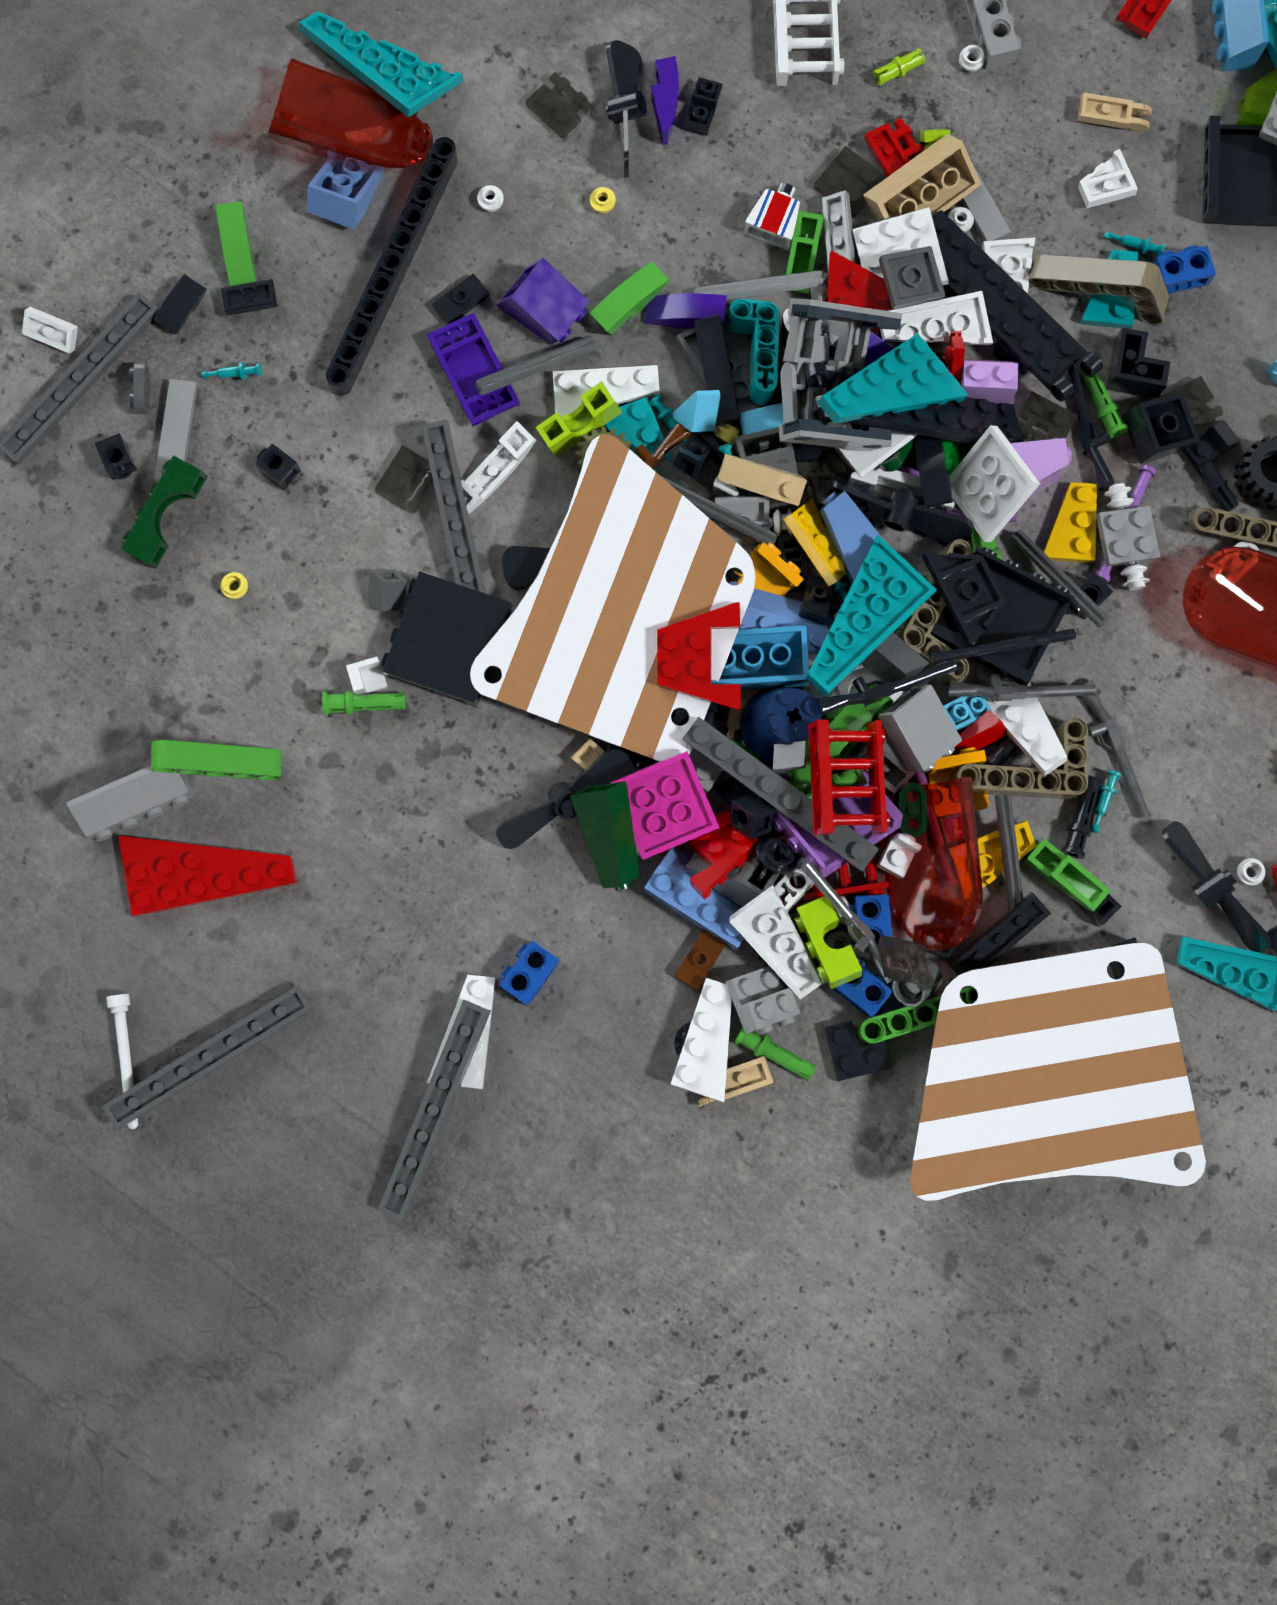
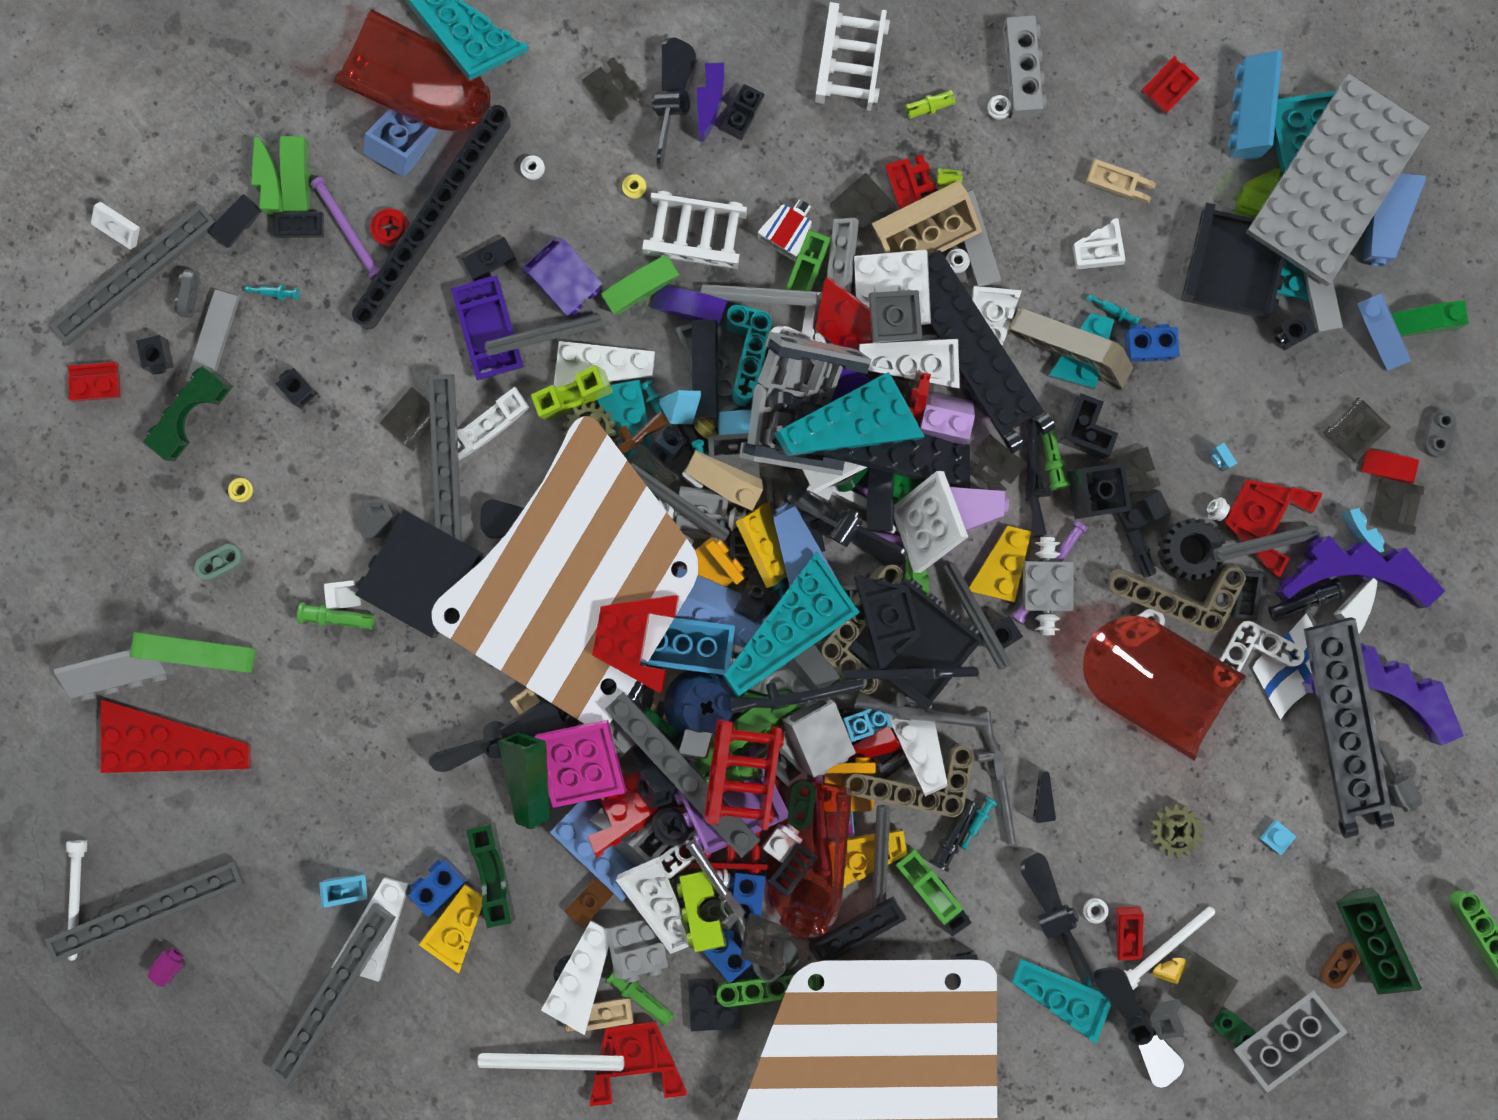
camera: 15 degrees right, 5 degrees up
(53, 499) = (94, 382): none -> red plate
(206, 255) = (266, 179): none -> bright green slope
(223, 664) = (219, 561): none -> sand green plate
(242, 1115) = (166, 967): none -> magenta brick
(262, 252) = (318, 184): none -> medium lavender bar
(339, 277) = (383, 219): none -> red gear
(426, 995) = (342, 890): none -> medium azure slope
(555, 1016) = (454, 928): none -> yellow wing
(586, 947) = (495, 890): none -> dark green arch
(677, 258) = (702, 253): none -> white fence
(691, 1141) = (551, 1061): none -> white axle
(778, 1114) = (643, 1053): none -> red wing
(906, 904) = (792, 856): none -> black slope
(1171, 762) = (1044, 804): none -> black slope

